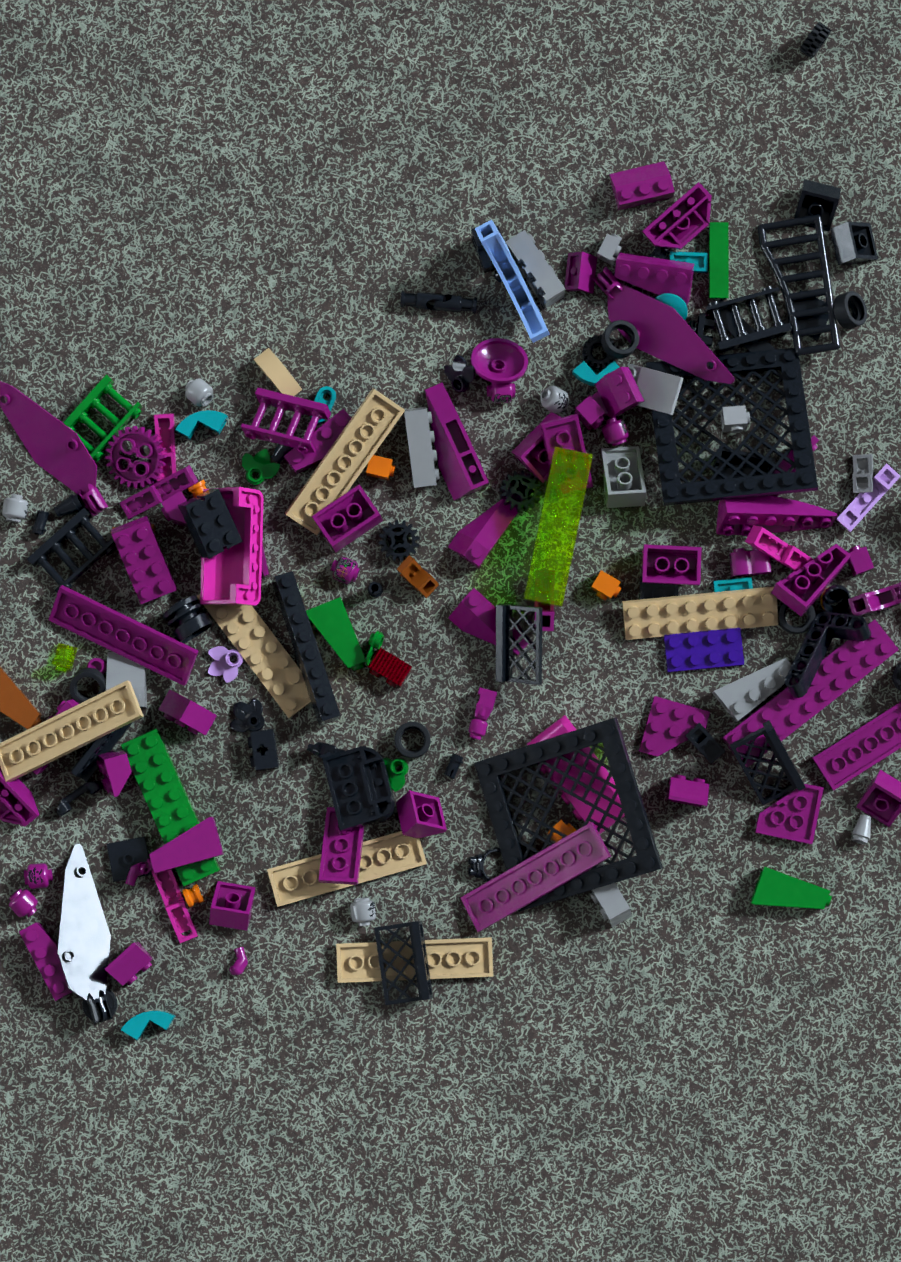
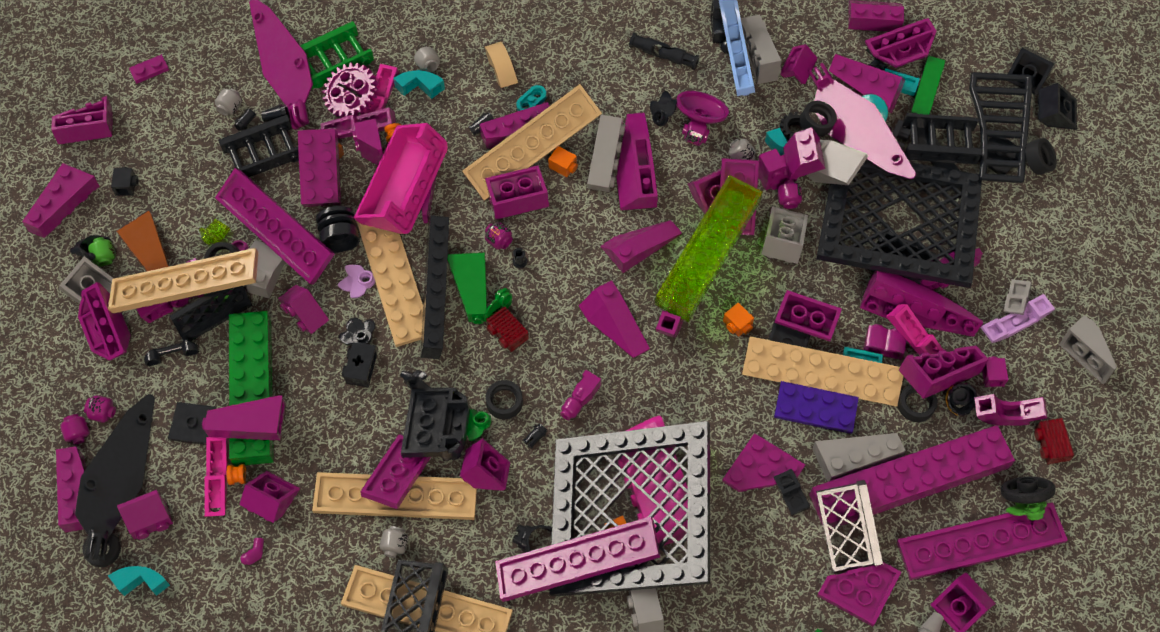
camera: 20 degrees right, 20 degrees down
(115, 769) = (214, 334): magenta slope -> none
(135, 871) = (192, 432): magenta arm -> none
(210, 523) = (389, 148): black piece -> none
(261, 464) = (457, 131): green plate -> none
(283, 403) = (493, 83): magenta fence -> none
(392, 535) = (557, 226): black gear -> none
(417, 577) = (561, 258): dark orange brick -> none
(506, 643) = (625, 337): black fence -> none
(516, 498) = (683, 217): black gear -> none
(610, 248) = (828, 51): light grey brick -> none
(687, 791) = (759, 531): magenta slope -> none
(734, 418) = (906, 207): light grey brick -> none
(816, 643) = (936, 427): black beam -> none

